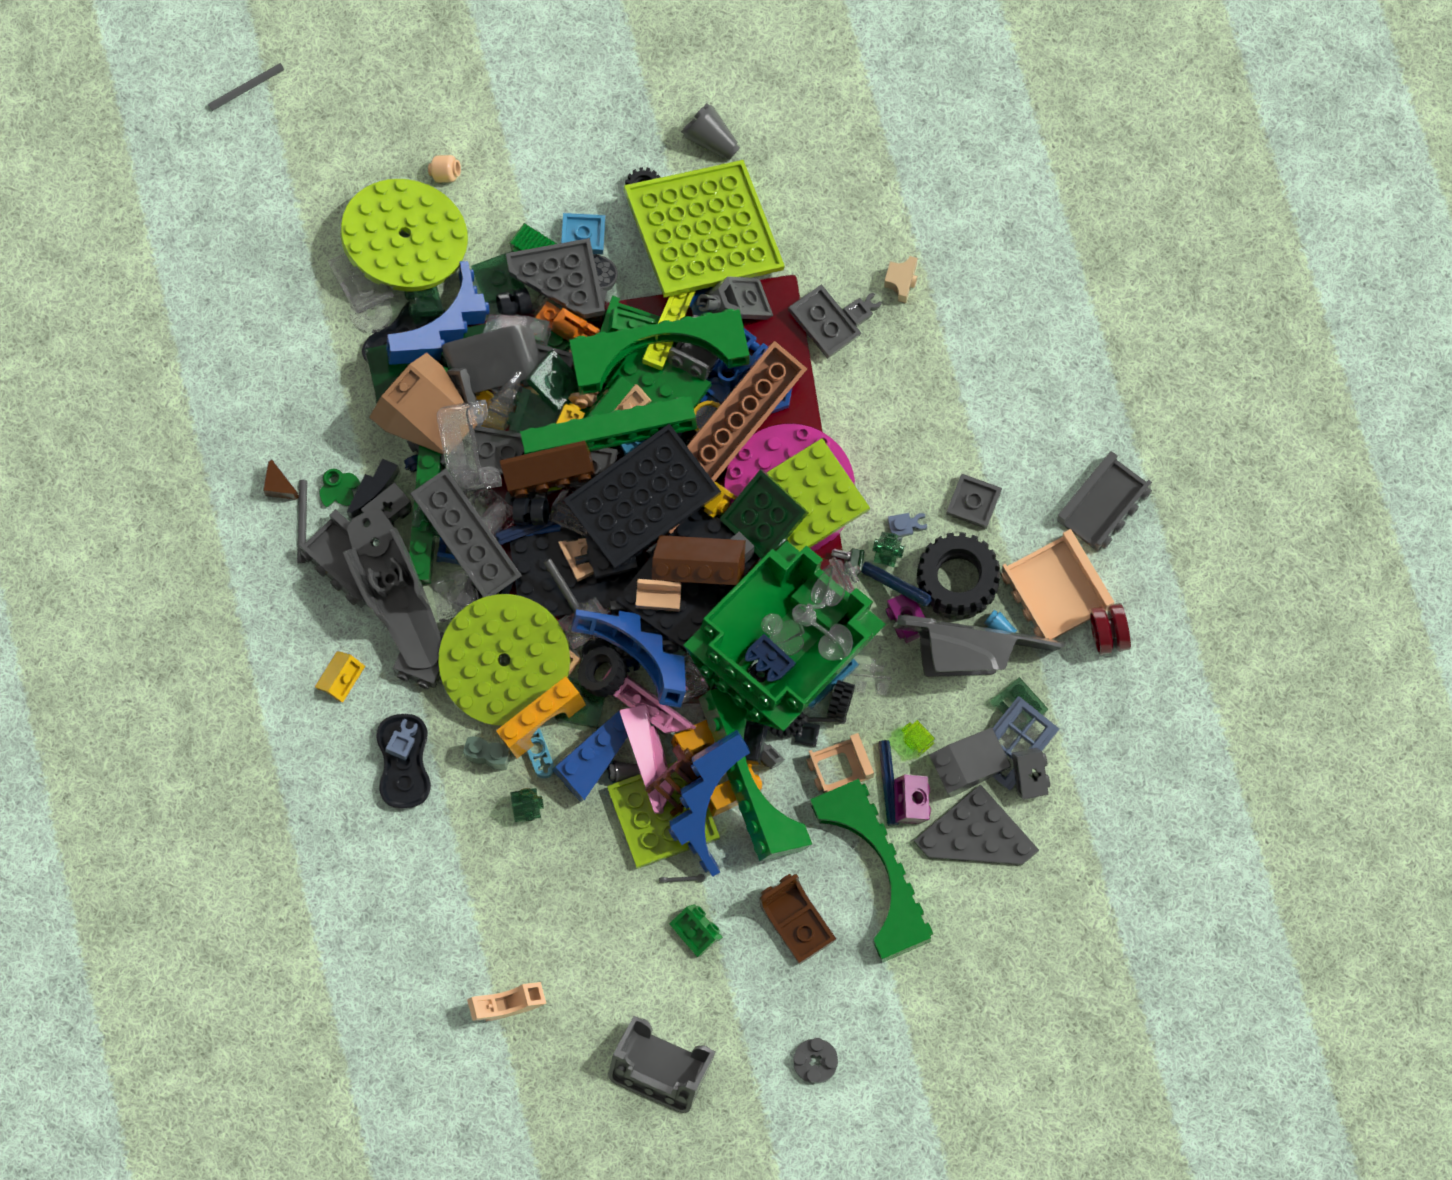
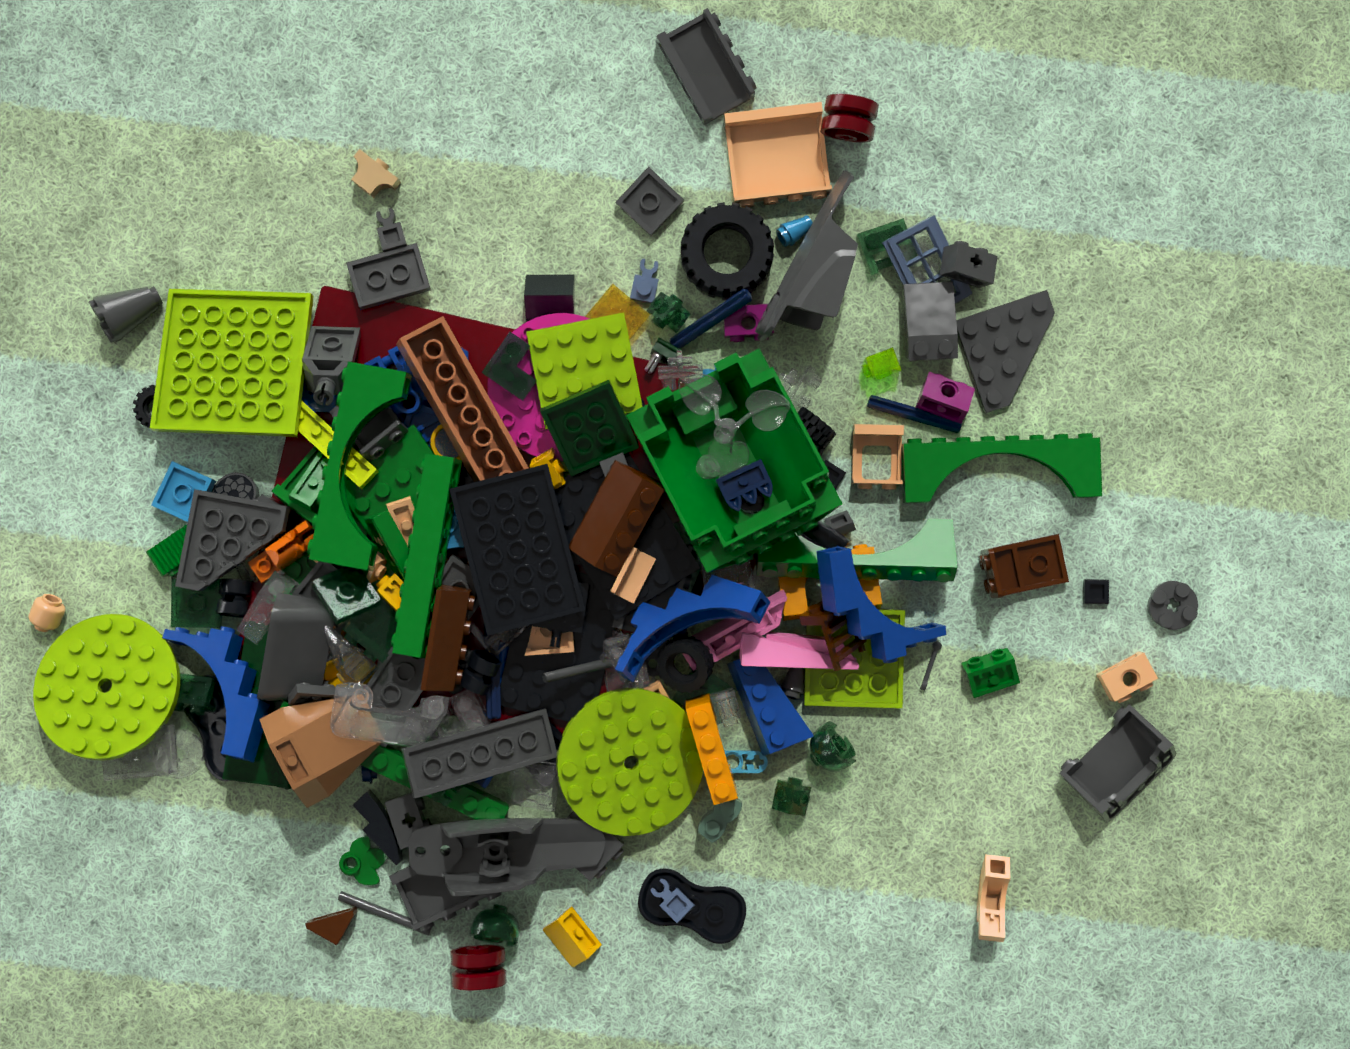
camera: 65 degrees left, 15 degrees up
(288, 607) = (478, 967): none -> dark red wheel
(327, 608) = (495, 926): none -> clear green cylinder
(579, 817) = (831, 752): none -> clear green cylinder
(580, 717) = (726, 707): none -> clear slope
(731, 1032) = (1112, 677): none -> light nougat brick
(788, 431) = (504, 370): none -> clear green plate
(800, 992) = (1095, 591): none -> black tile
(863, 452) = (549, 295): none -> black slope
(873, 521) = (615, 302): none -> clear yellow plate

